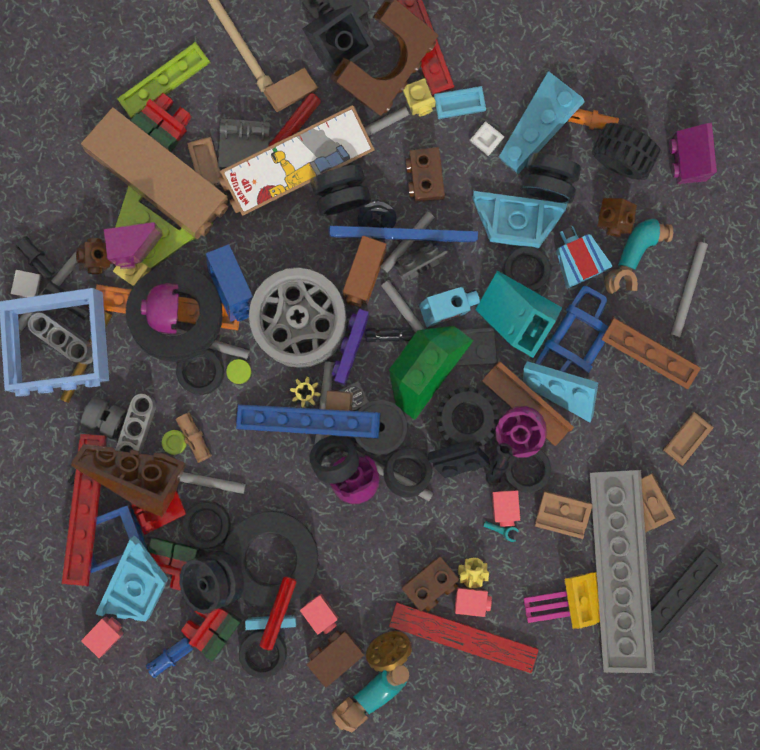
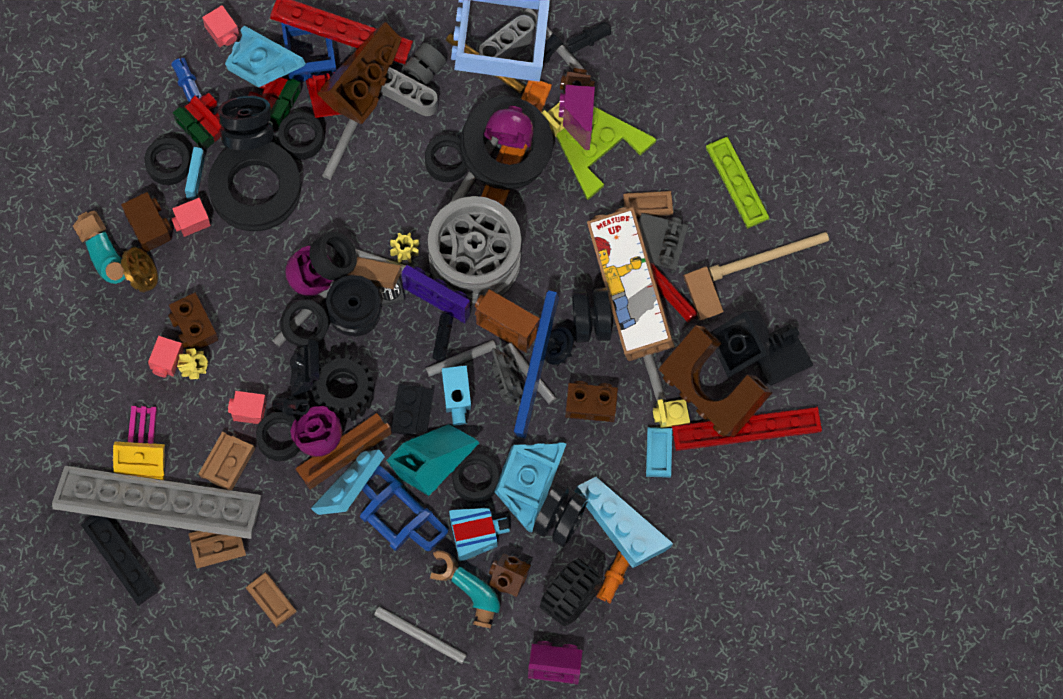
camera: 95 degrees right, 15 degrees down
(26, 284) = (566, 24): white tile -> none
(155, 173) = (644, 154): medium nougat brick -> none
(161, 125) = (692, 168): red hips -> none
(174, 442) = (386, 124): lime tile -> none
(193, 437) = (386, 141): medium nougat pin -> none
(229, 283) = (526, 193): blue window -> none
(238, 371) = (439, 194): lime tile -> none
(277, 613) = (201, 176): red axle -> none
(308, 421) = (375, 240): blue tile -> none
(425, 366) = (403, 362): green wedge -> none
(464, 637) = (132, 345): red tile -> none
(487, 138) = (617, 470): white tile -> none
(502, 530) = (226, 402): teal hand -> none
(650, 353) = (366, 577): dark orange panel -> none

